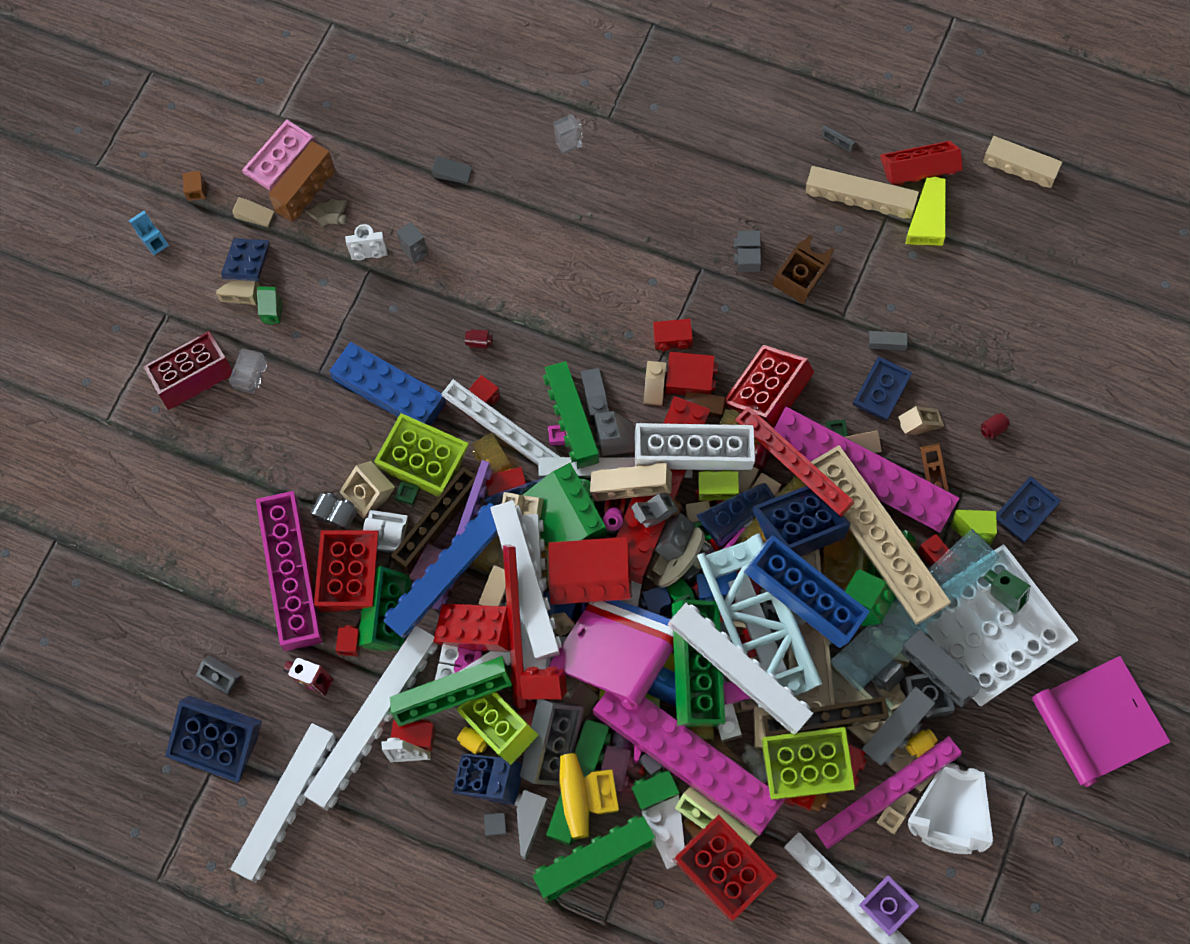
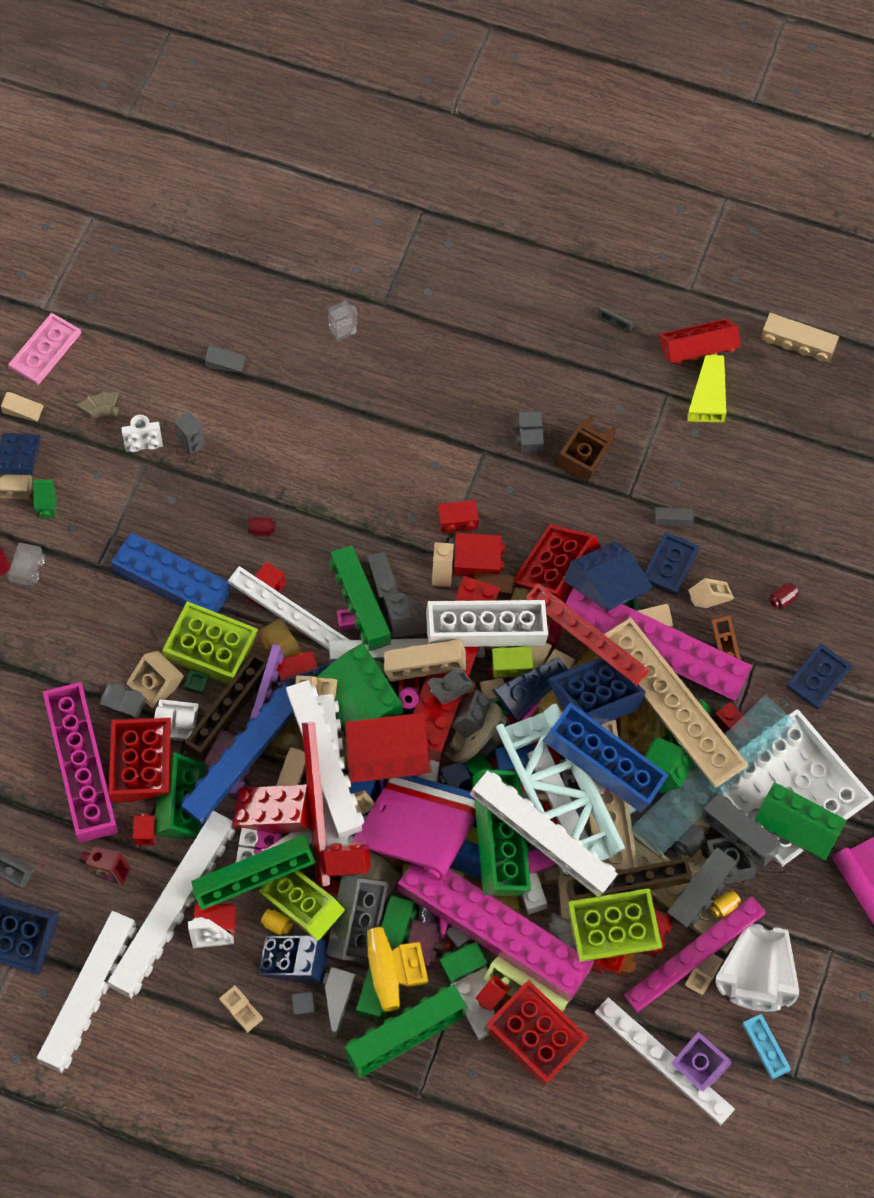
camera: 10 degrees left, 5 degrees down
(302, 181) = (72, 374): dark orange brick -> none
(433, 826) = (241, 1009): none -> tan slope
(682, 825) = (492, 993): none -> red brick
(818, 401) = (608, 576): none -> dark blue slope
(861, 192) = (640, 371): tan brick -> none
(956, 891) = (766, 1046): none -> medium azure plate
(980, 521) = (774, 687): lime slope -> none
(1001, 662) = (800, 821): none -> green slope
(1008, 589) = (804, 751): dark green torso -> none

